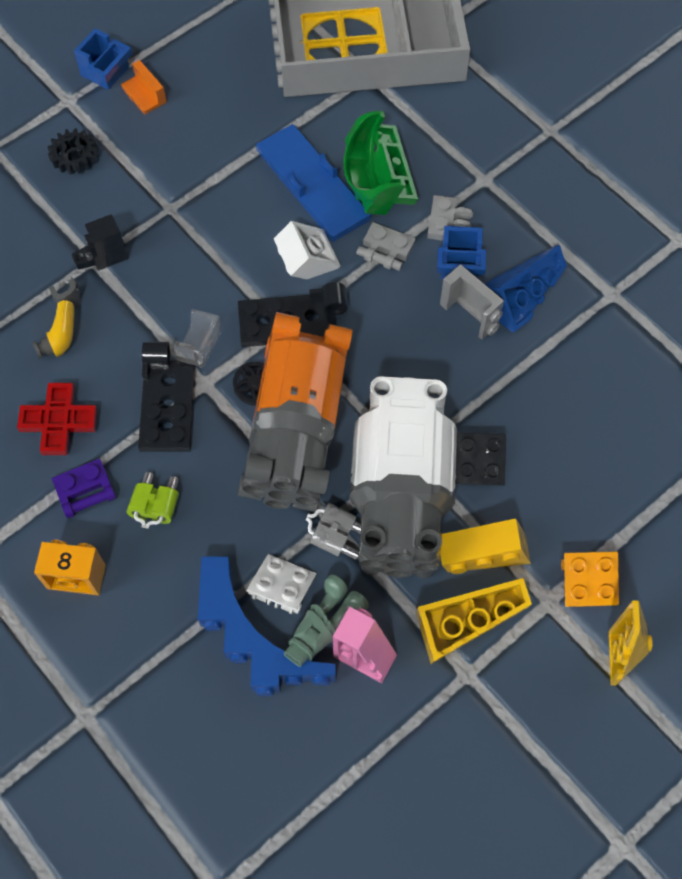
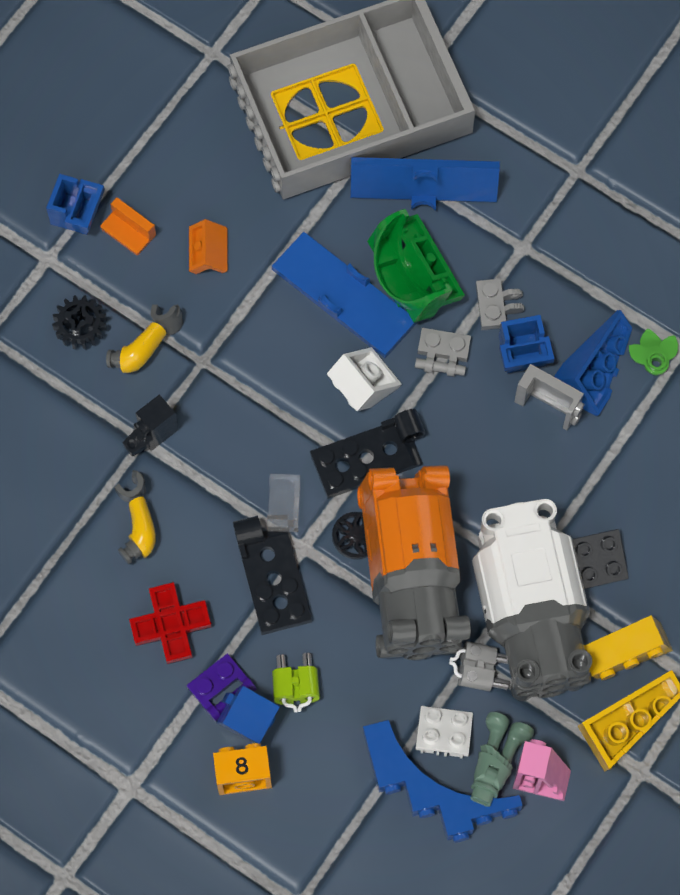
camera: 15 degrees left, 5 degrees up
(93, 516) = (247, 714): none -> blue plate
(121, 180) = (138, 352): none -> piece
(206, 118) = (207, 247): none -> orange panel
(411, 101) = (424, 180): none -> blue piece
(582, 288) = (653, 349): none -> bright green plate

